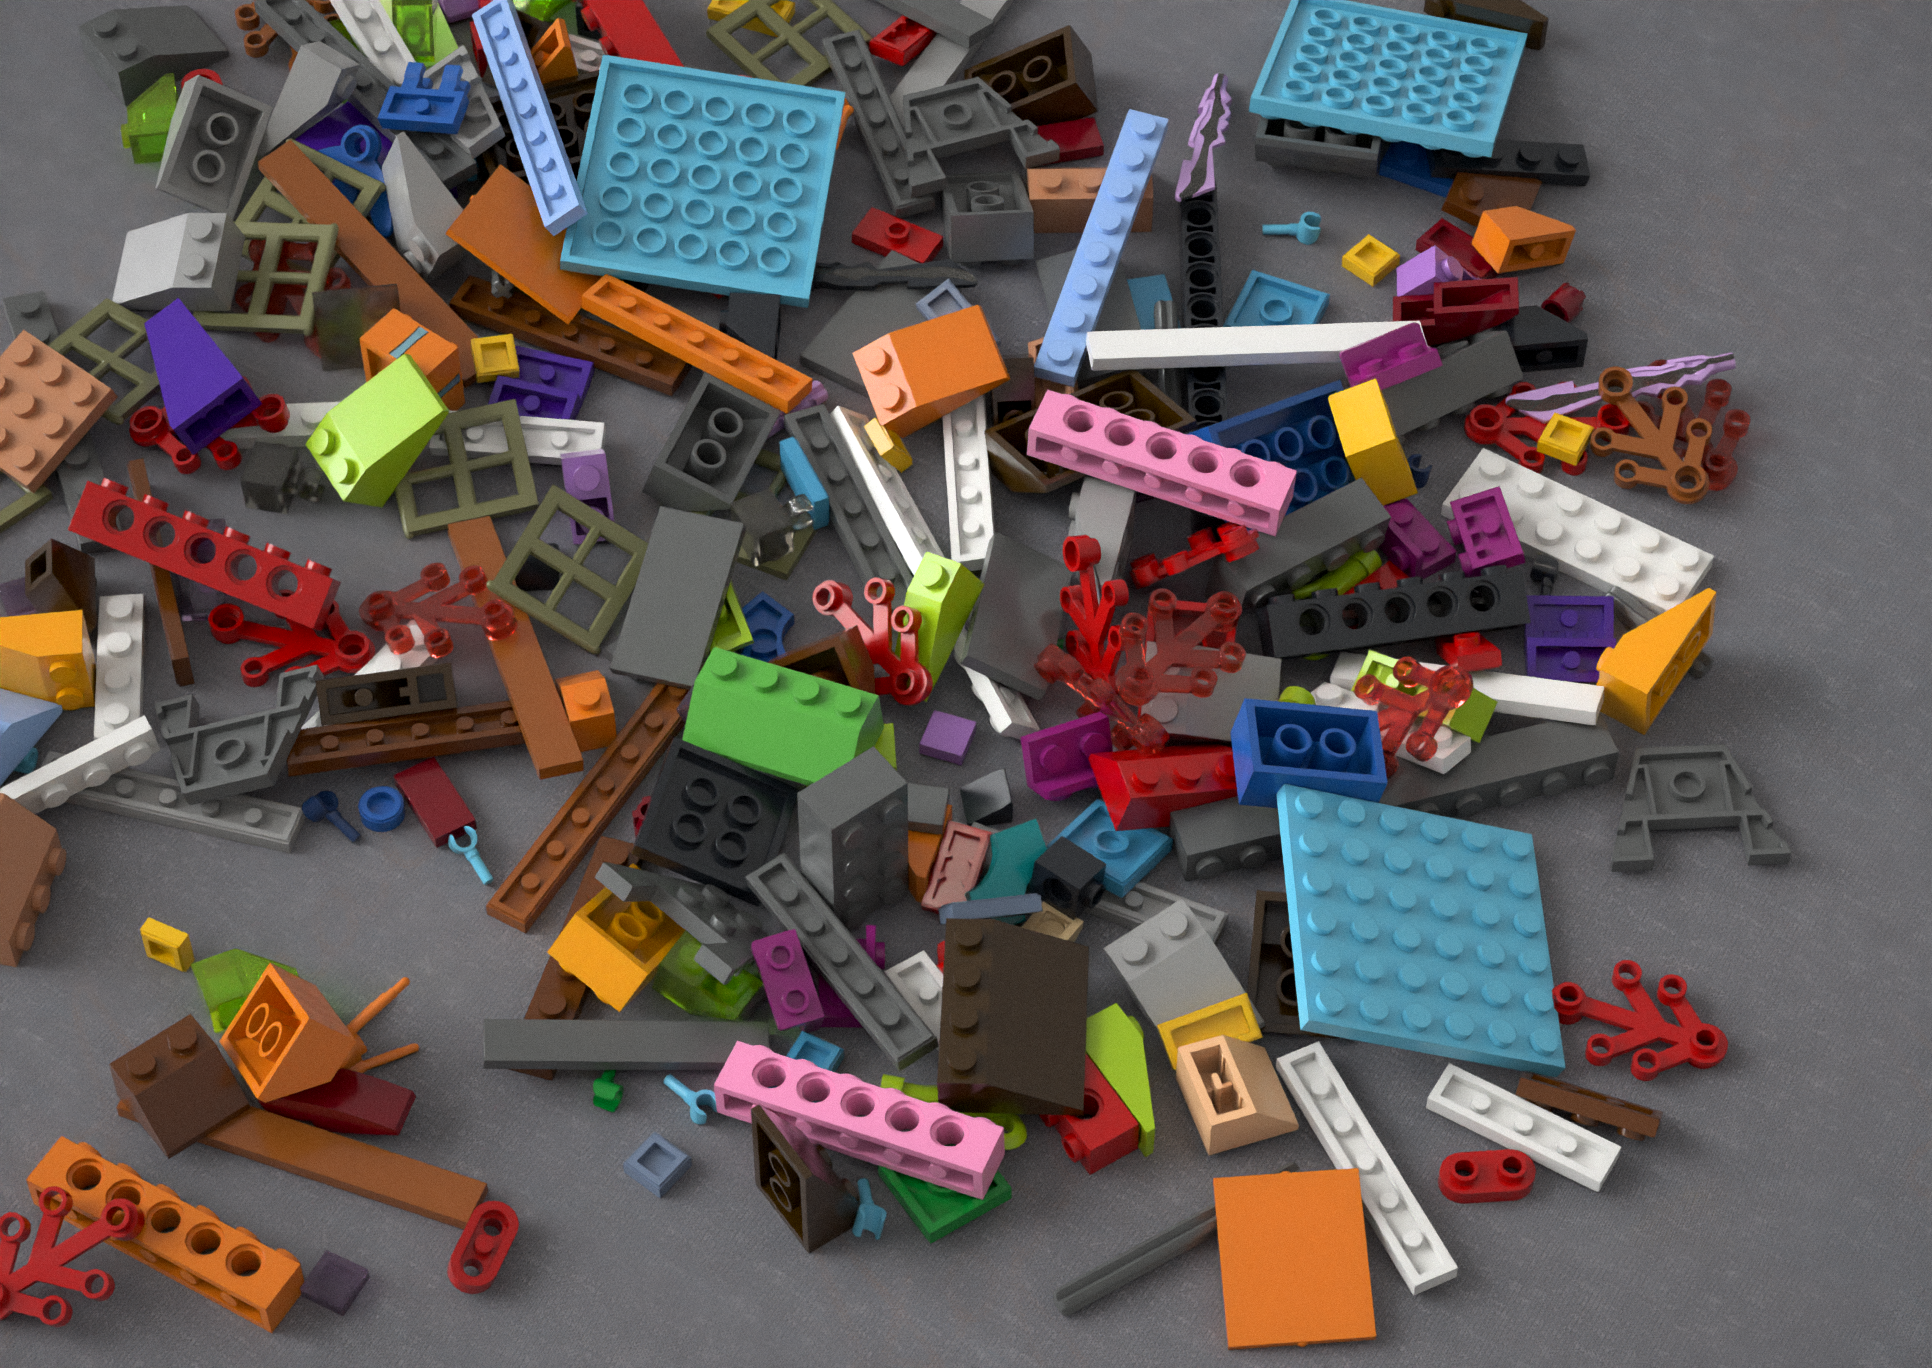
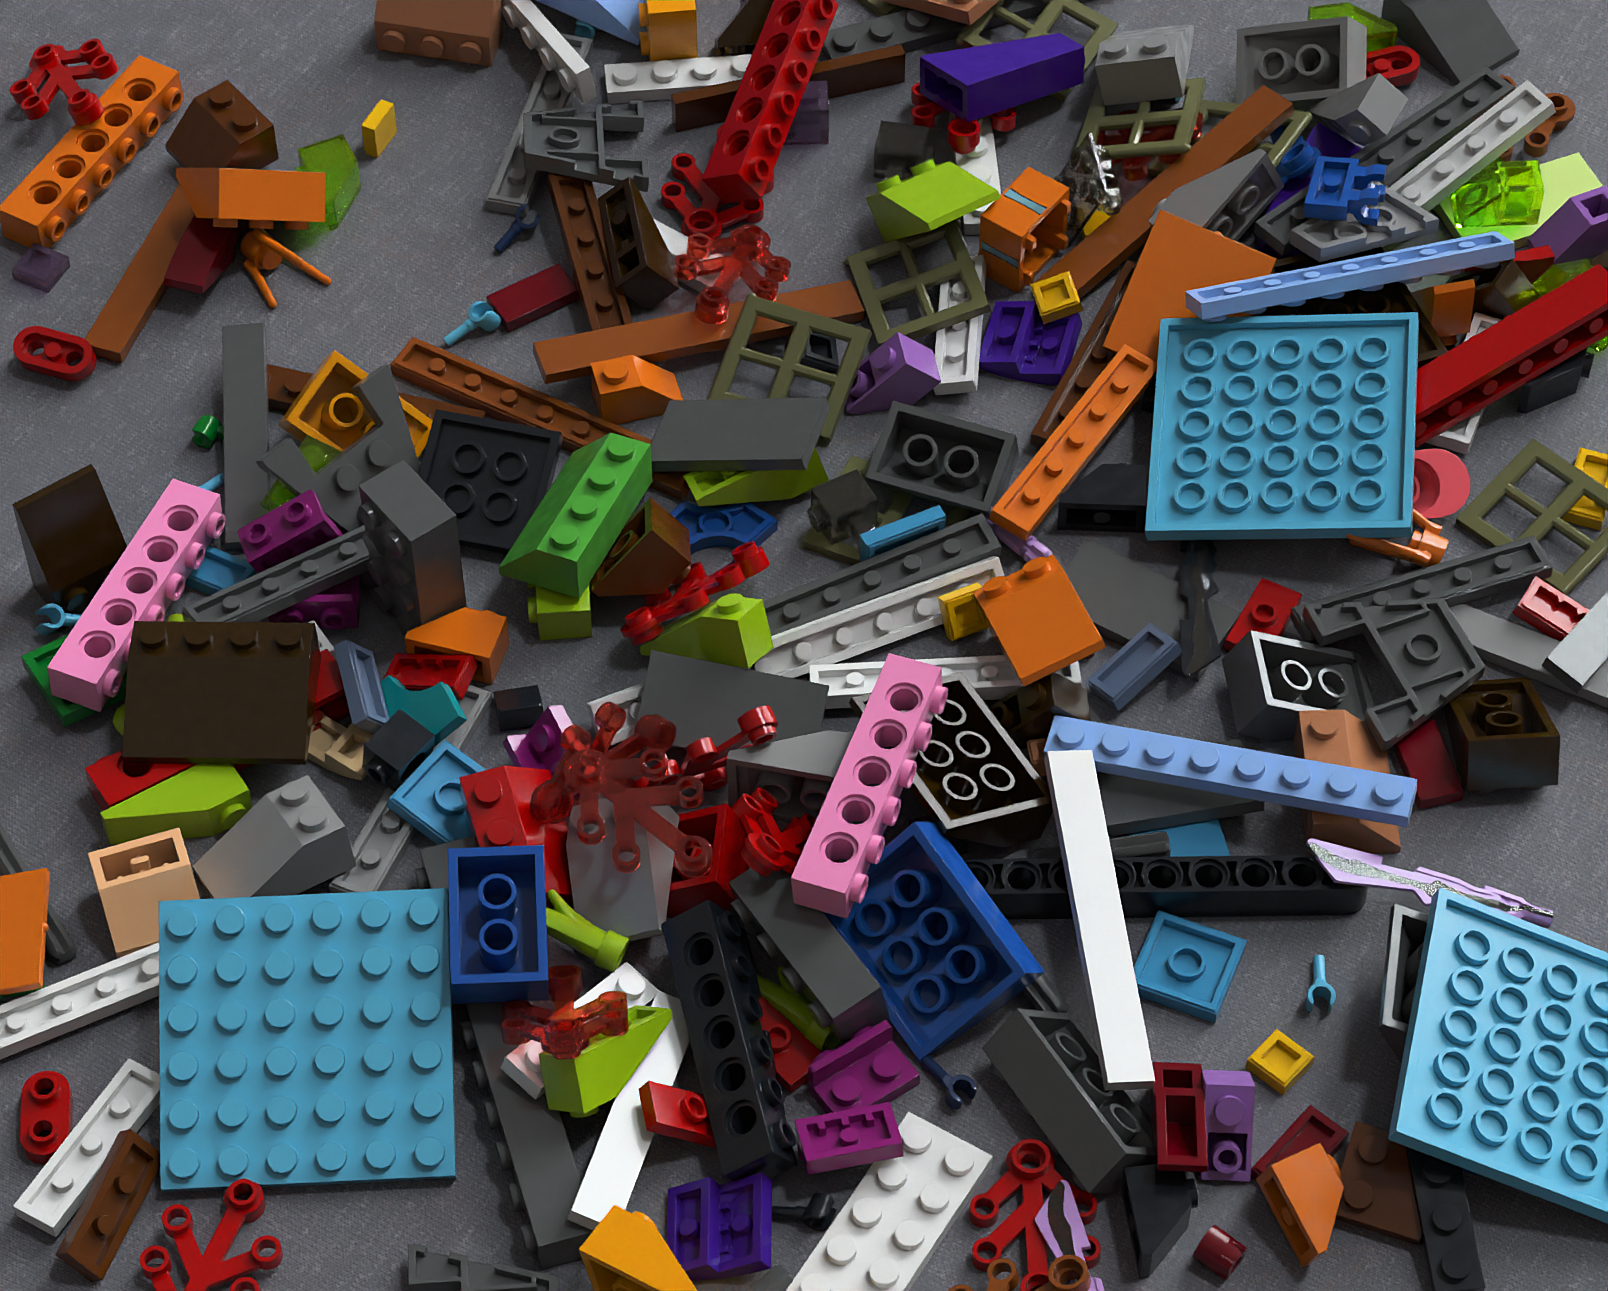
camera: 90 degrees right, 0 degrees up
(381, 809) = (526, 260): blue tile -> none
(657, 1164) = (132, 472): sand blue tile -> none
(927, 808) = (478, 628): dark grey tile -> none
(947, 737) = (598, 673): medium lavender tile -> none
(1229, 1018) = (217, 865): yellow tile -> none
(1372, 442) = (950, 1004): yellow panel -> none
(1390, 357) = (1070, 1035): magenta bracket -> none
(1565, 439) = (1005, 1235): yellow tile -> none

